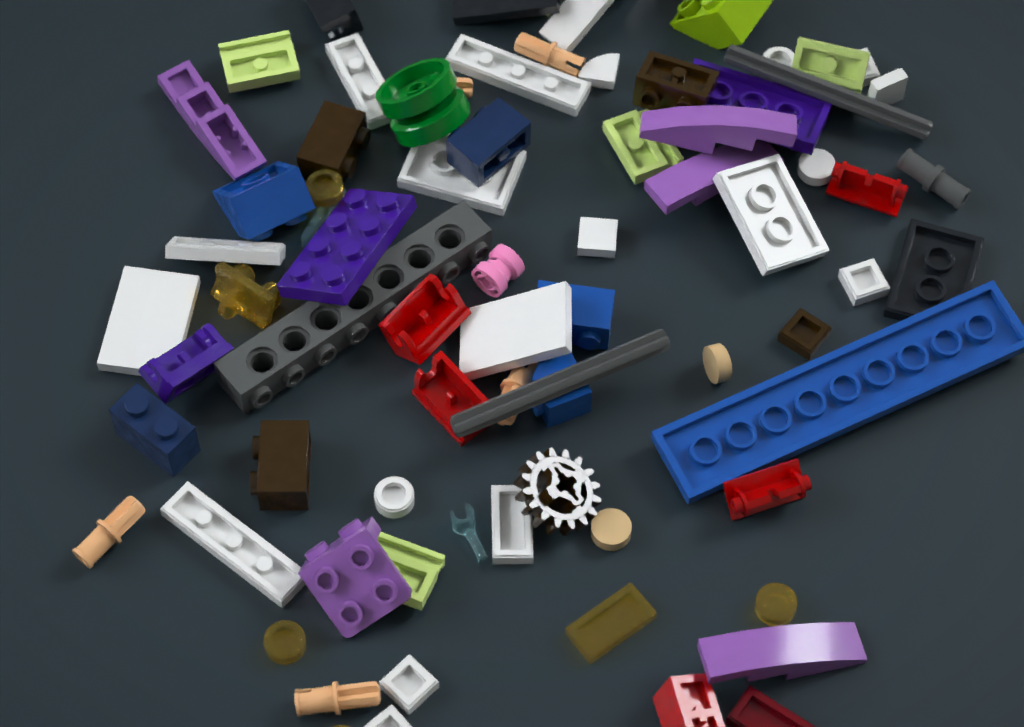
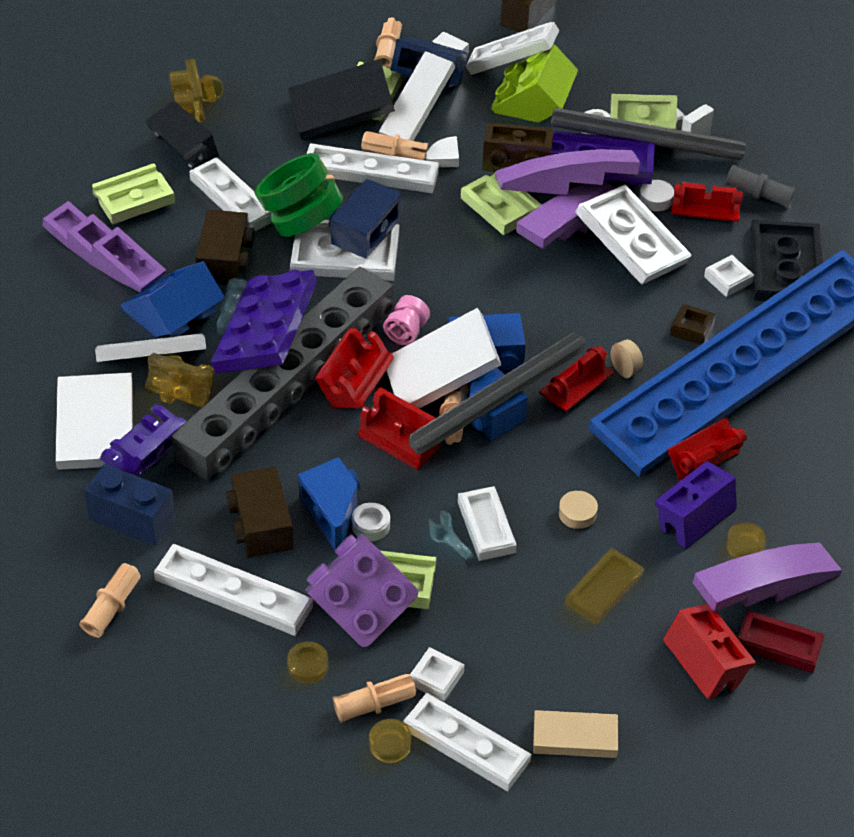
camera: 15 degrees left, 10 degrees down
(325, 187) = (230, 279): clear yellow tile -> none
(359, 465) = (330, 498): none -> blue slope
(557, 491) = (522, 484): gear -> none
(597, 237) = (485, 281): white tile -> none
(657, 377) = (578, 379): none -> red hinge
(735, 551) = (697, 503): none -> dark purple hinge

